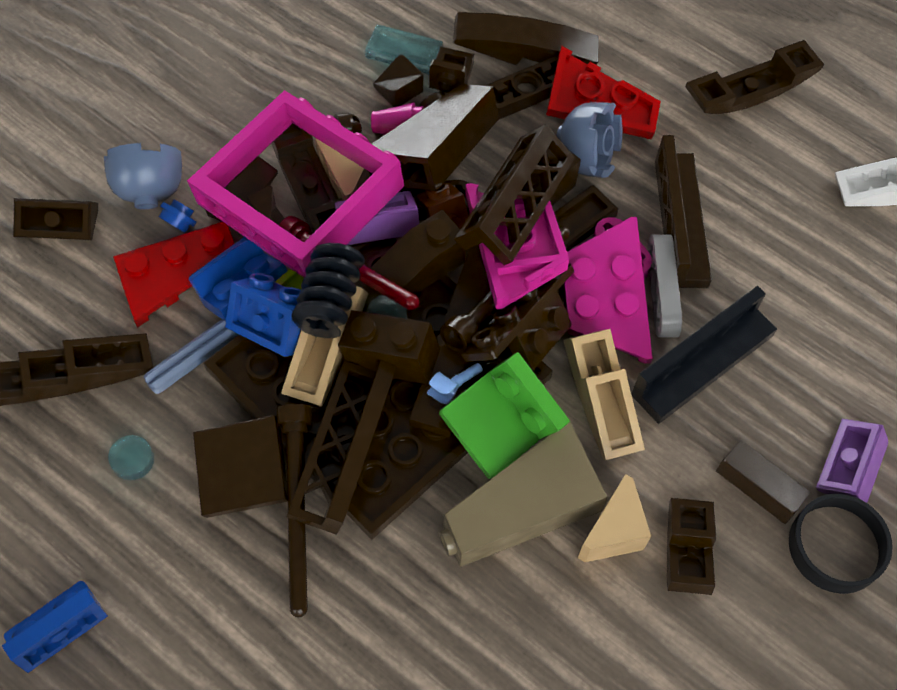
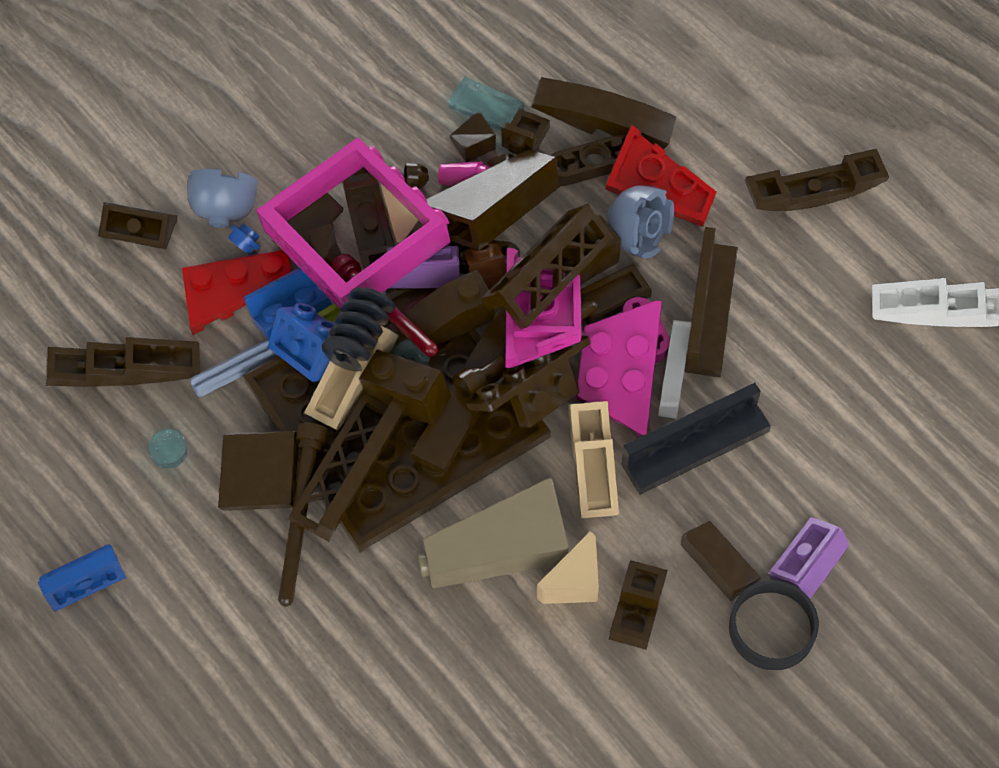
camera: 15 degrees right, 0 degrees up
(444, 389) = (446, 432): light blue hand -> none
(503, 415) = (491, 463): bright green bracket -> none

